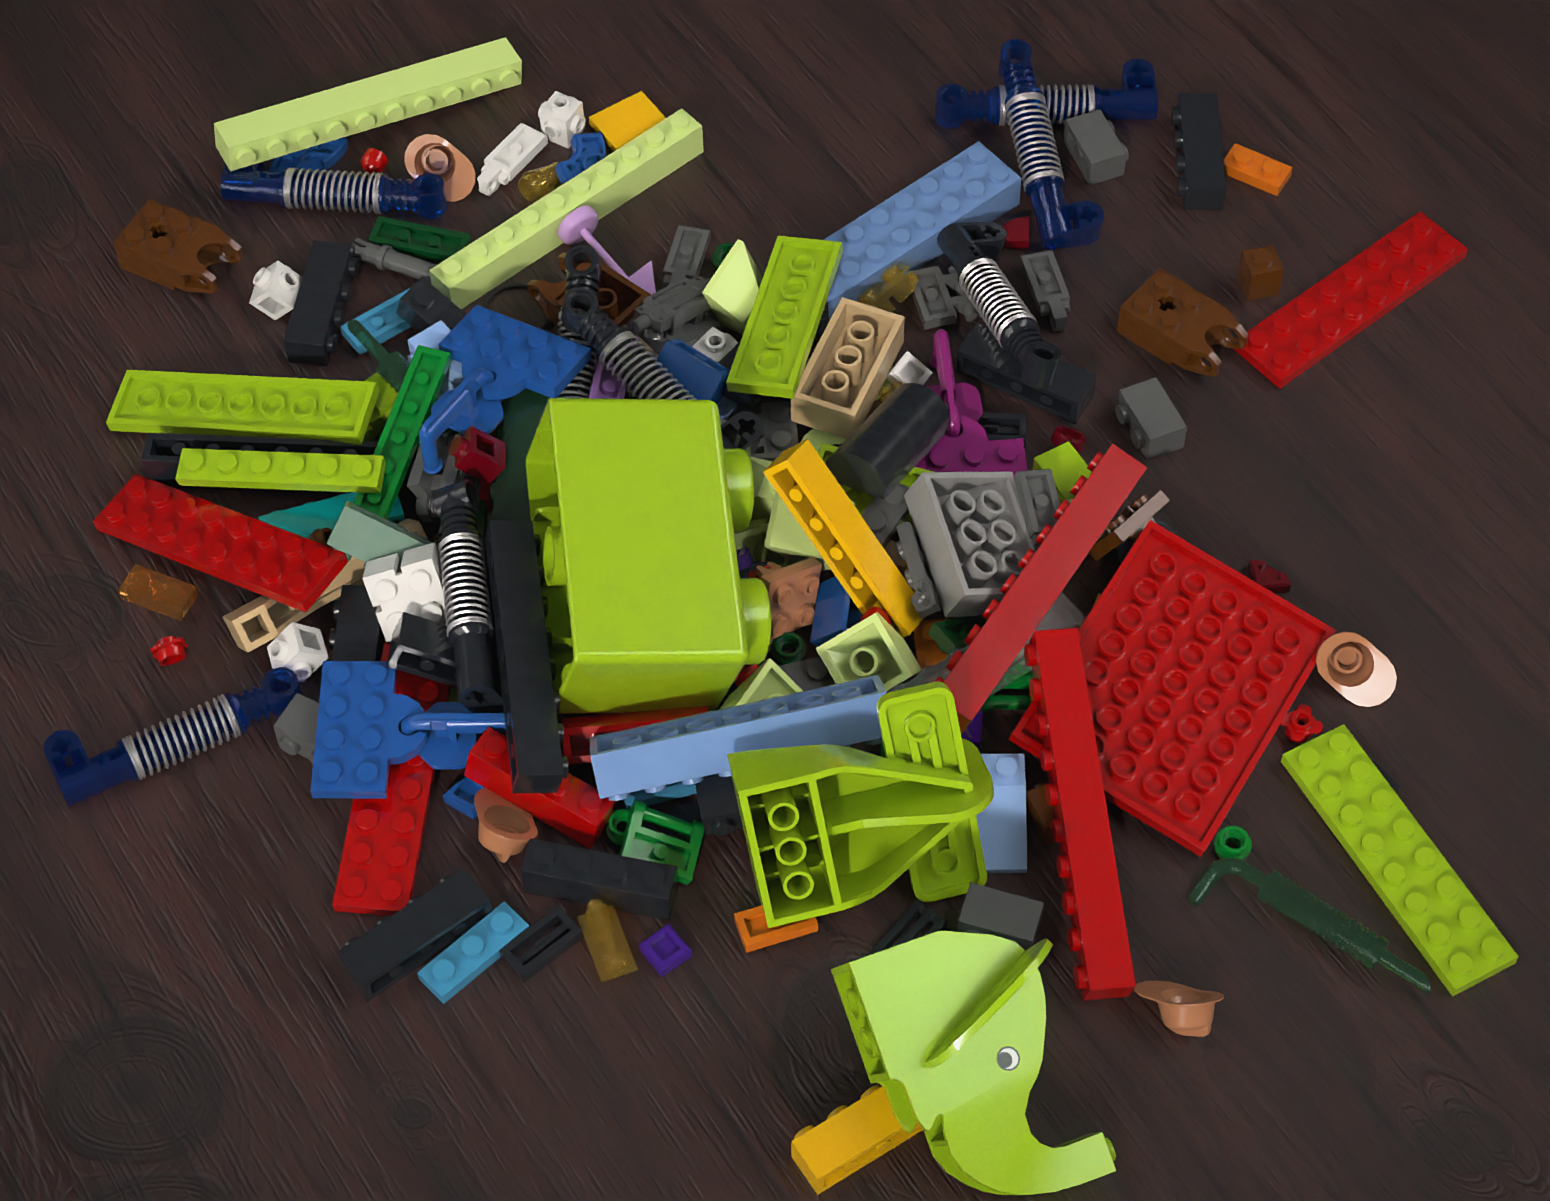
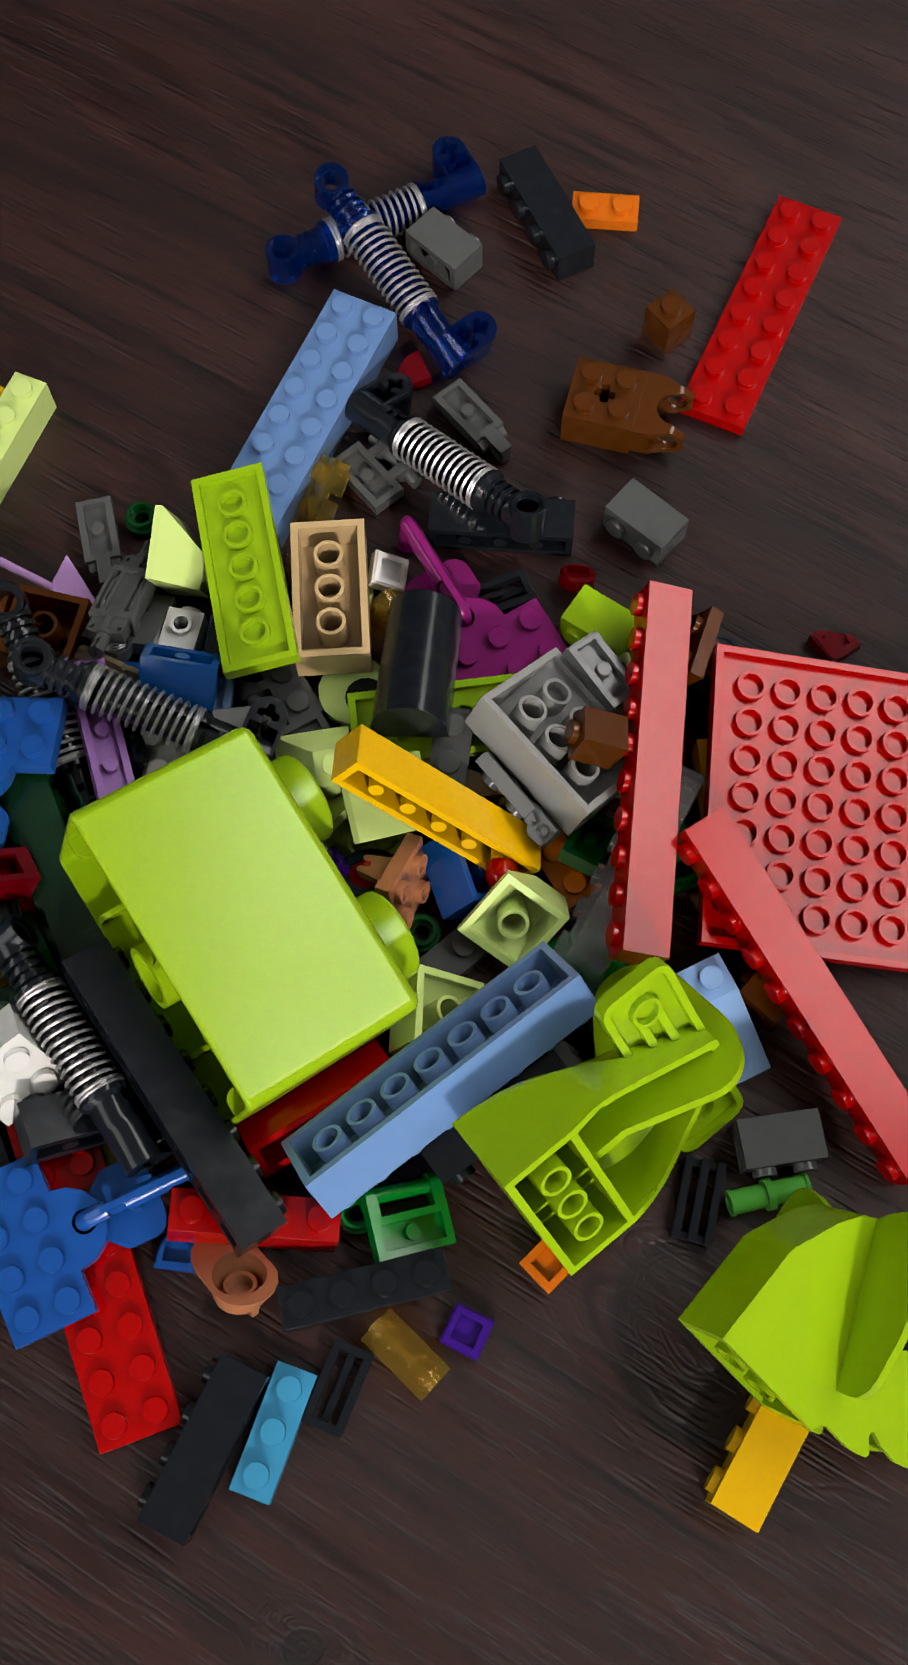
camera: 25 degrees left, 15 degrees up
(1003, 542) = (597, 737): none -> reddish brown brick

